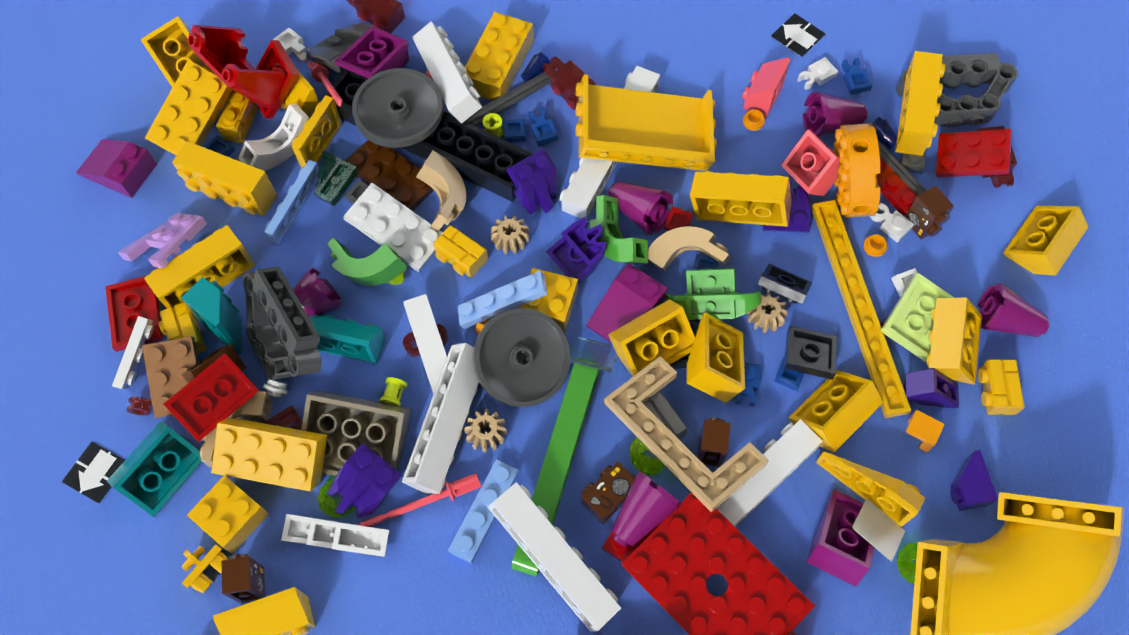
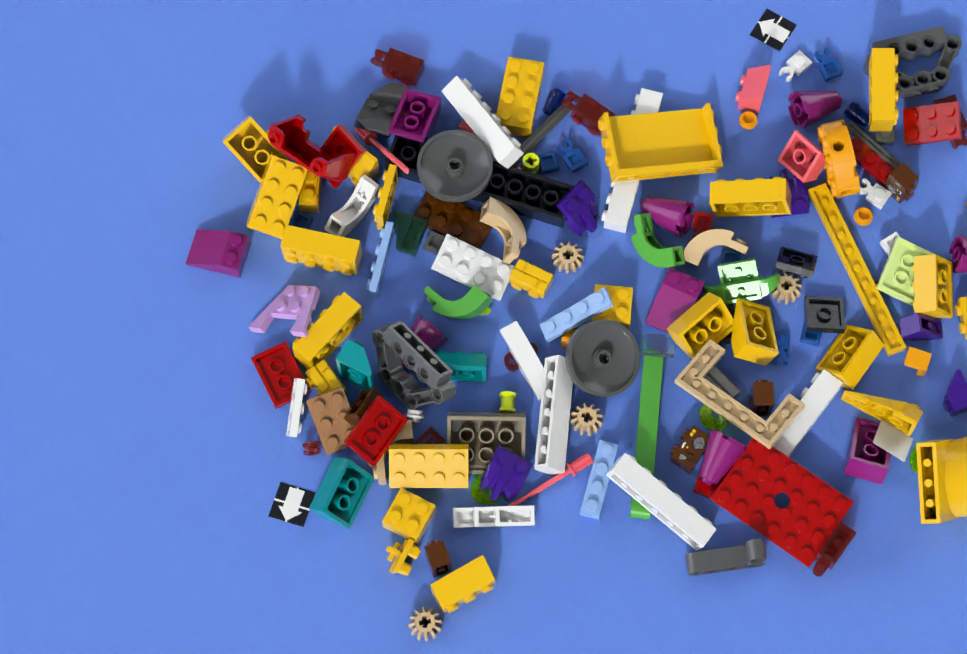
camera: 10 degrees left, 5 degrees up
(292, 43) = (333, 111): white plate -> none
(578, 250) = (627, 263): dark purple plate -> none

